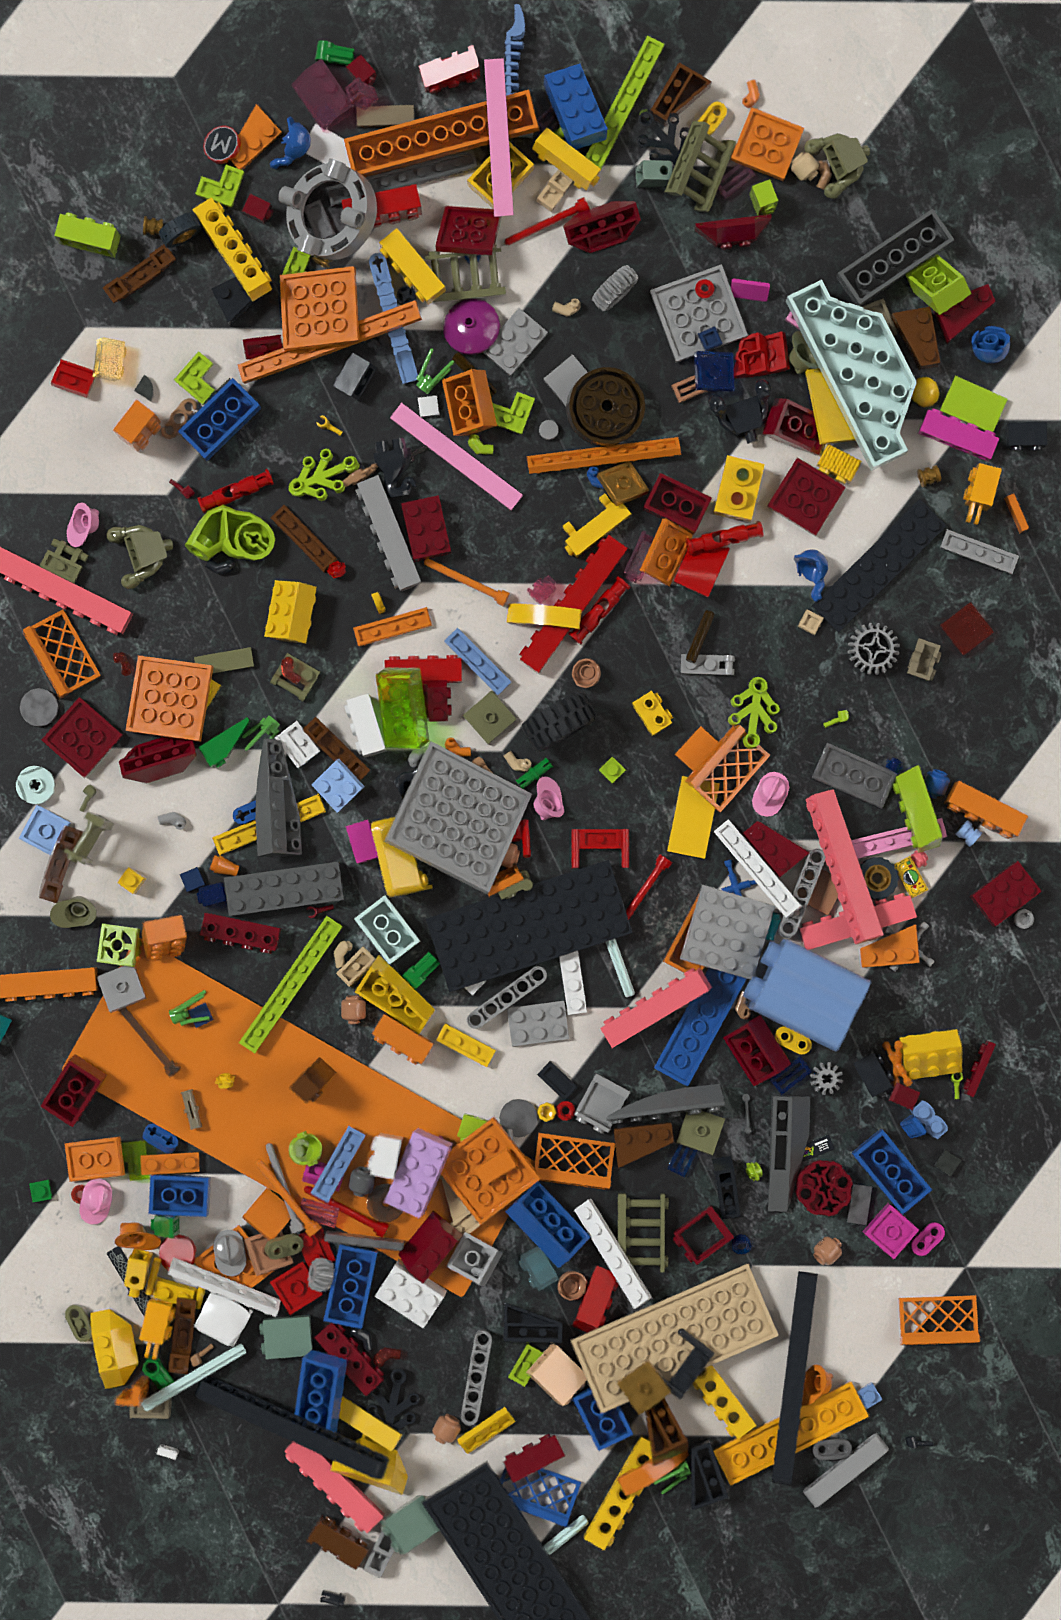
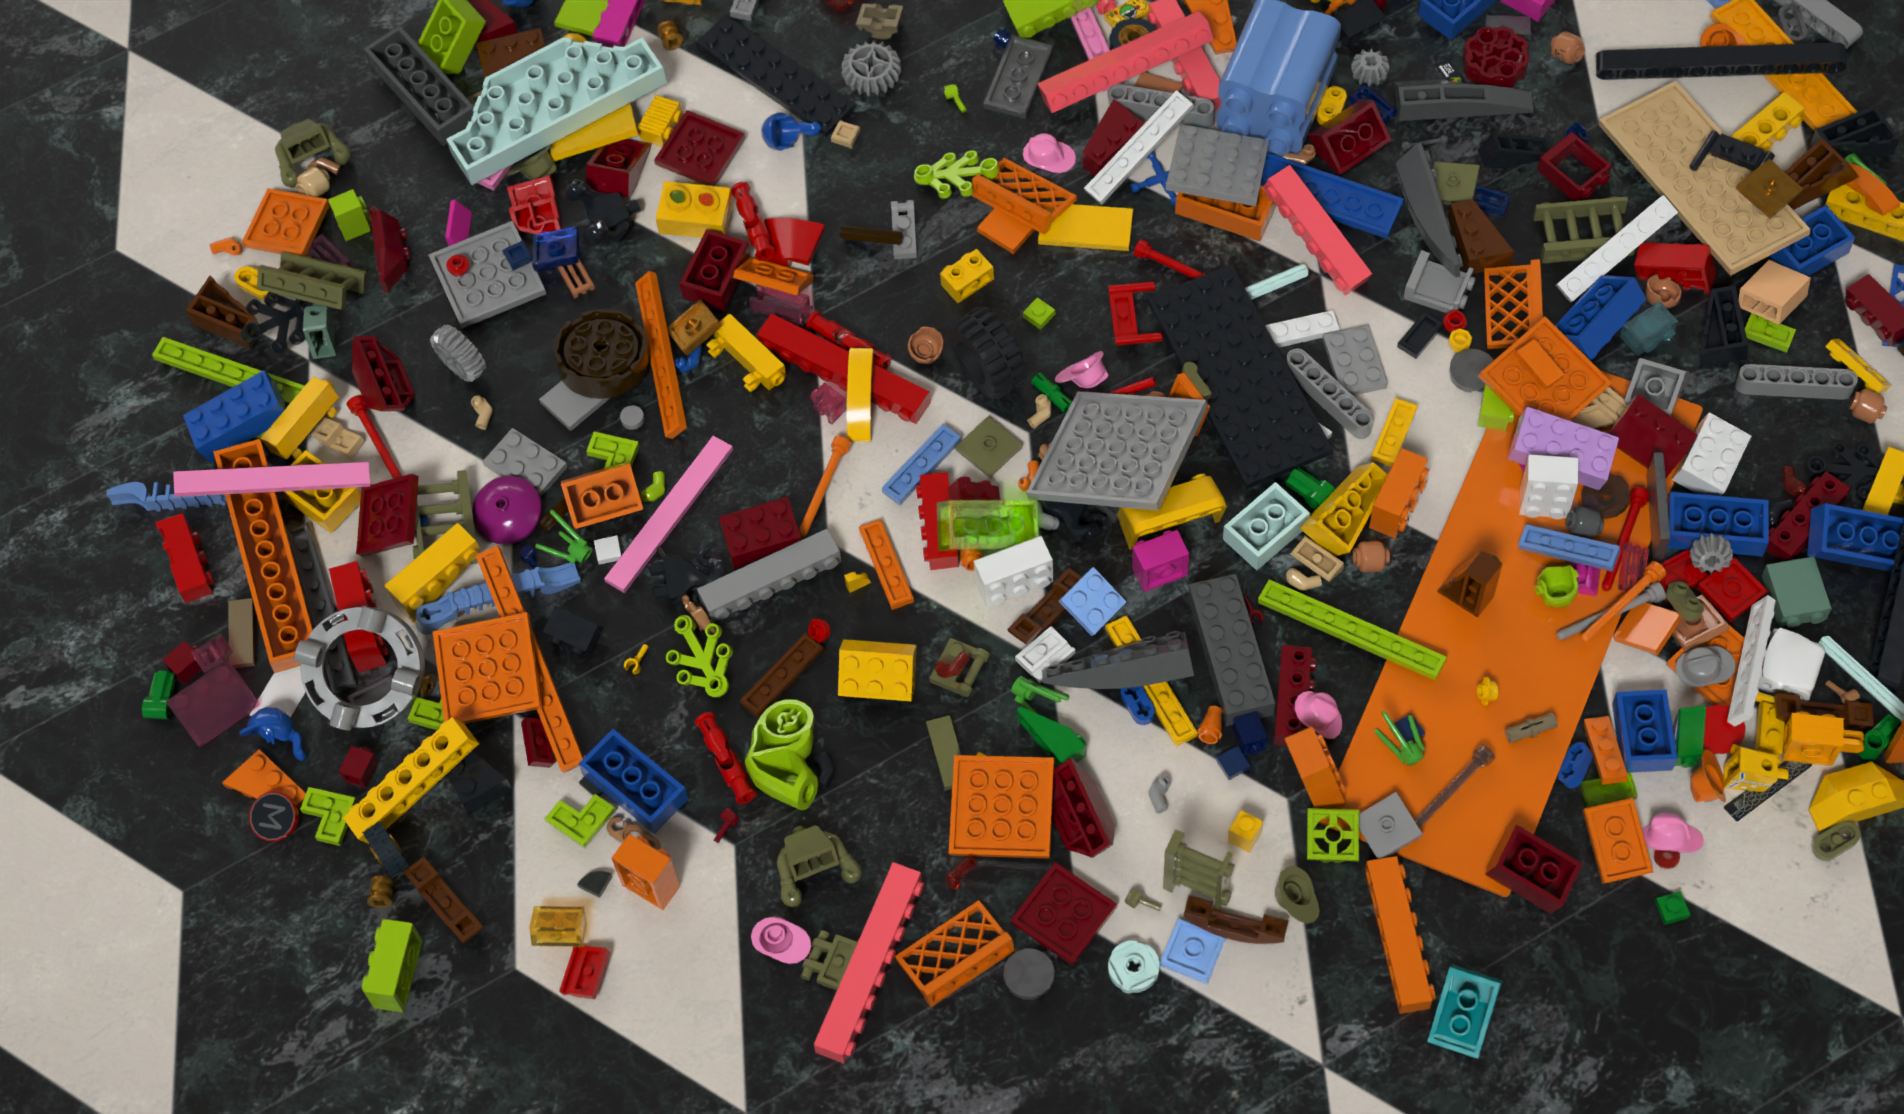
camera: 90 degrees left, 25 degrees down
(220, 948) = (1320, 712): none -> bright pink piece
(407, 293) = (468, 579): black wheel -> none
(430, 341) = (527, 554): none -> clear blue hand
(754, 1171) = (1490, 125): lime plate -> none

